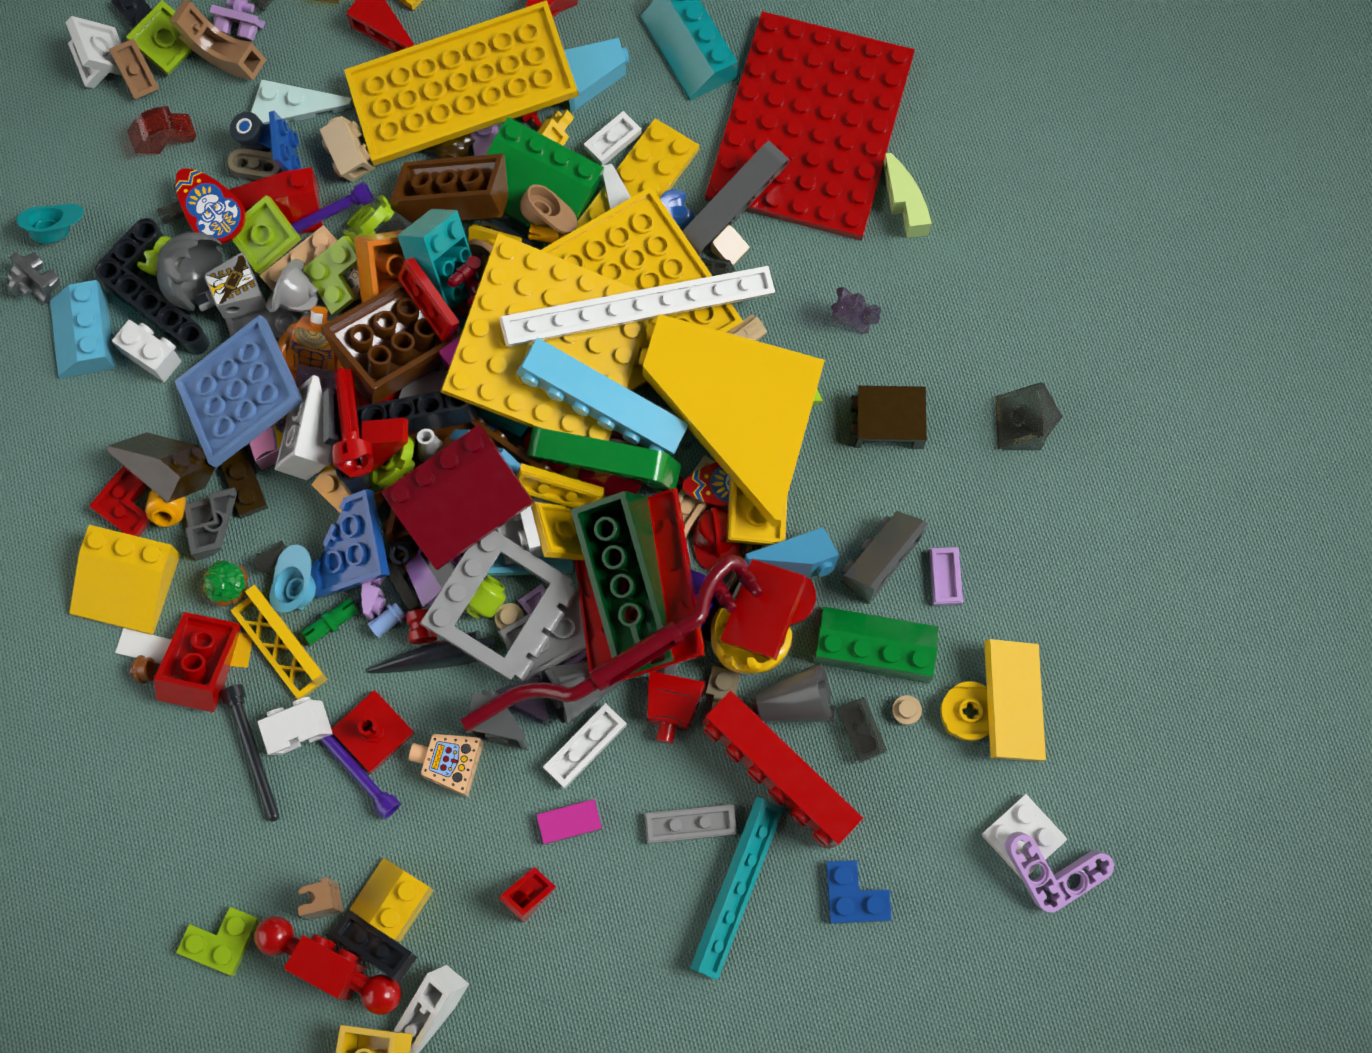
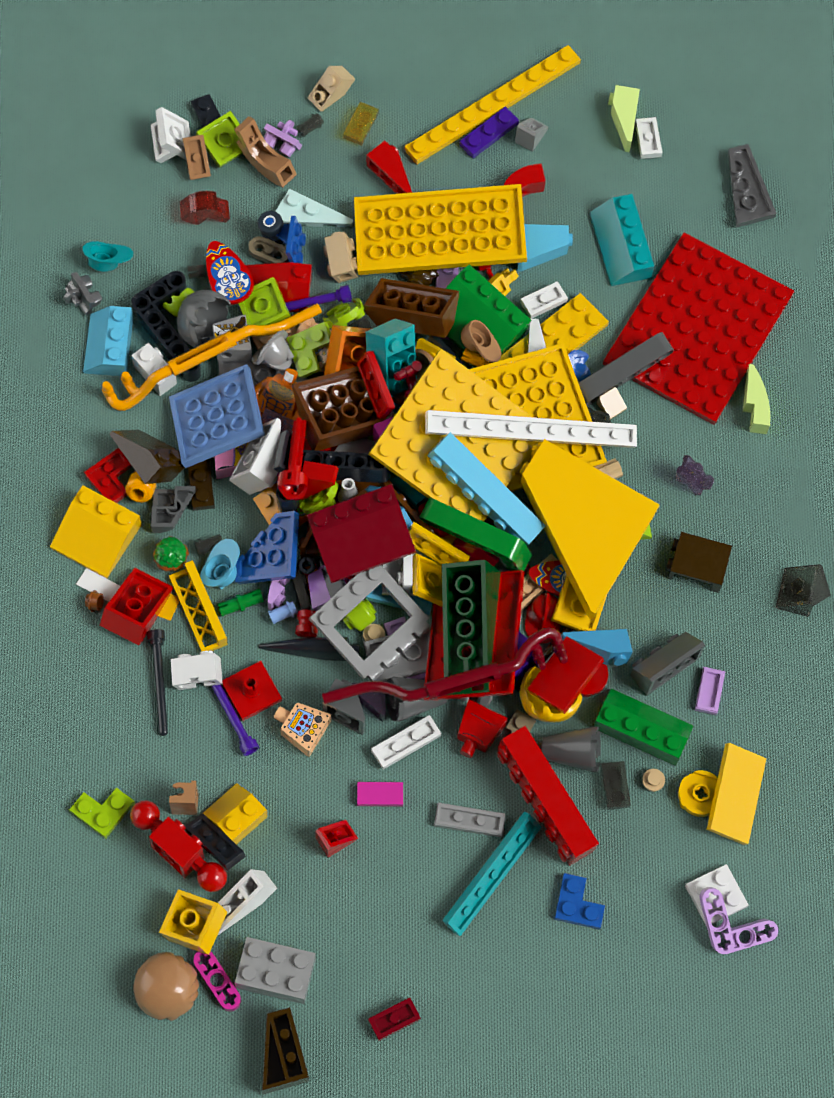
camera: 10 degrees right, 5 degrees down
(195, 319) = (198, 356): none -> light orange piece

